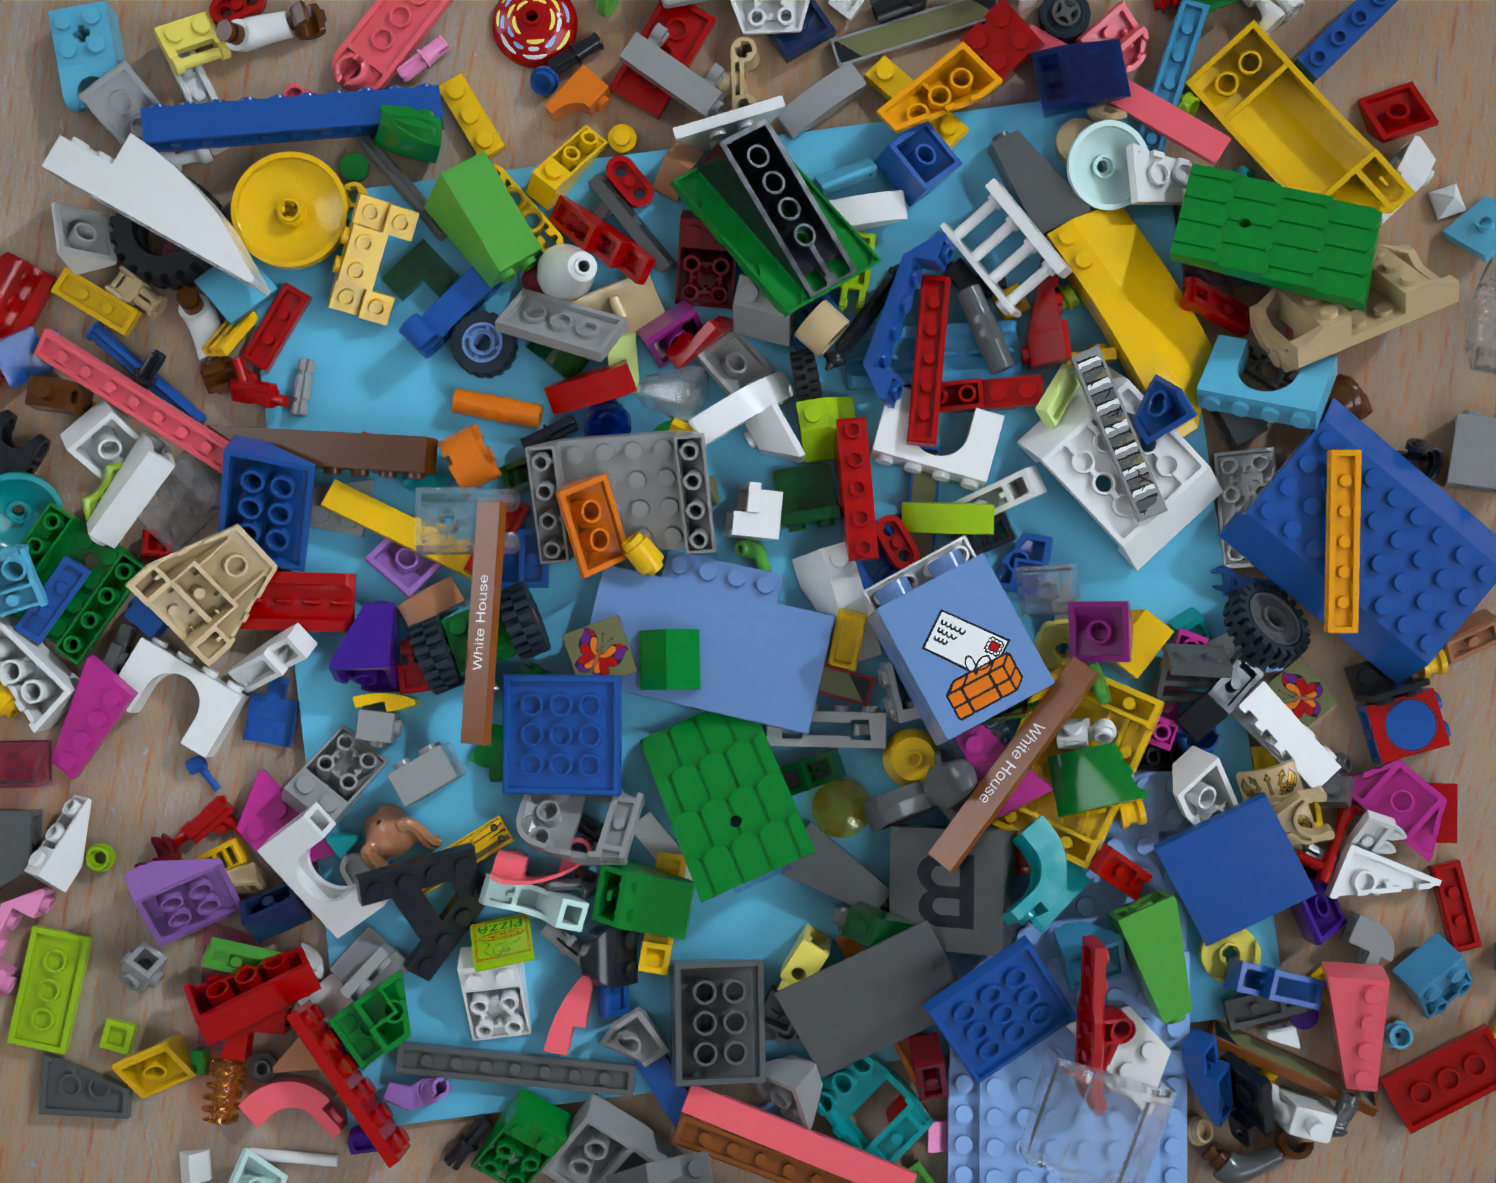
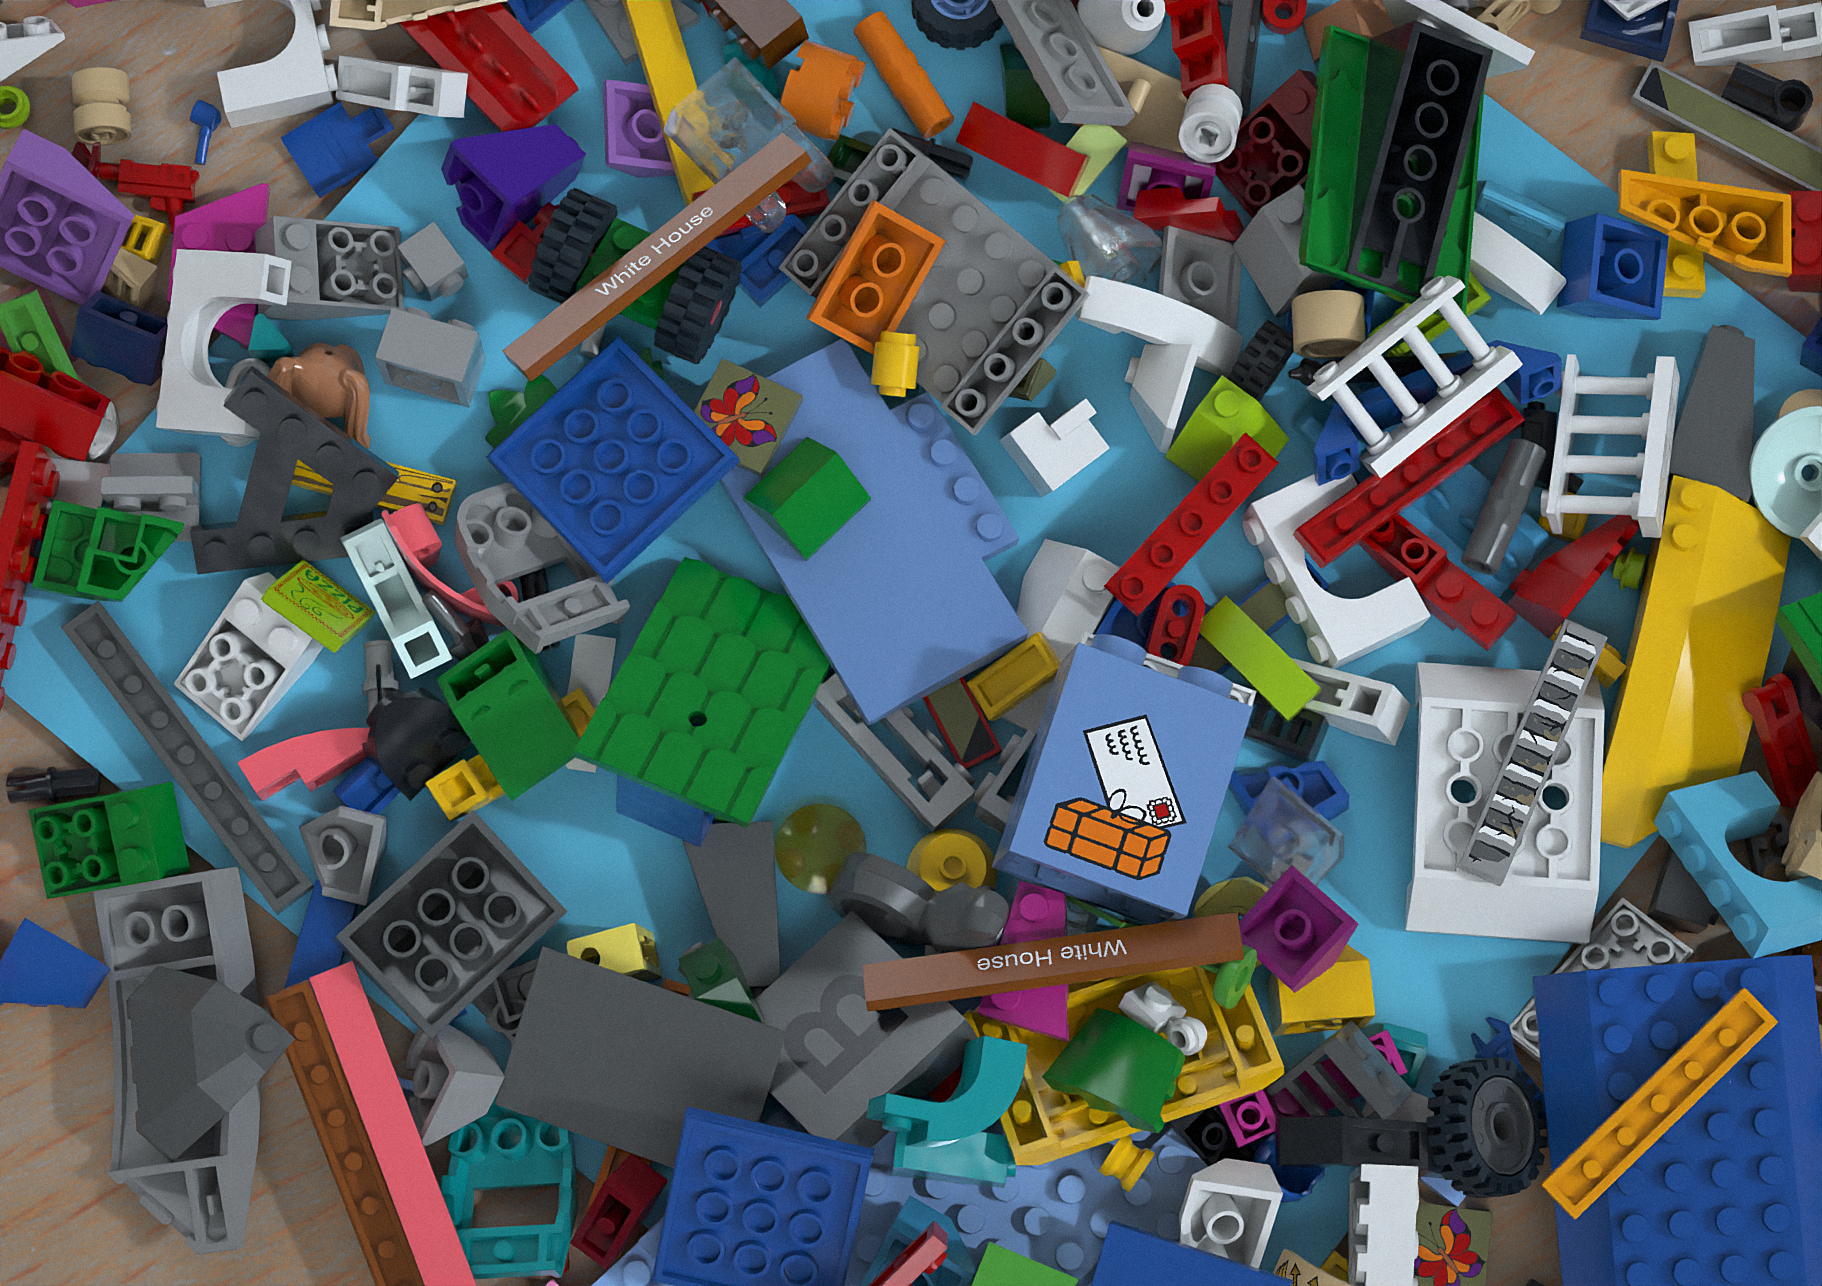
camera: 35 degrees right, 10 degrees down
(146, 815) = (101, 105): none -> tan wheel
(392, 701) = (474, 250): yellow slope -> none
(419, 1094) = (57, 675): medium lavender arm -> none
(431, 602) = (636, 199): nougat slope -> none
(607, 419) = (1007, 195): clear blue hair -> none
(666, 286) = (1210, 123): none -> white wheel
(753, 551) = (1013, 487): bright green arm -> none
(807, 496) = (1129, 488): dark green bracket -> none
(813, 771) = (829, 775): dark green slope -> none
(821, 100) = (1576, 110): light grey slope -> none
(915, 319) = (1454, 392): none -> white fence
(1058, 396) = (1508, 654): yellowish green tile -> none
(1119, 871) = (1047, 1205): red plate -> none
(1162, 410) = (1603, 776): blue slope -> none

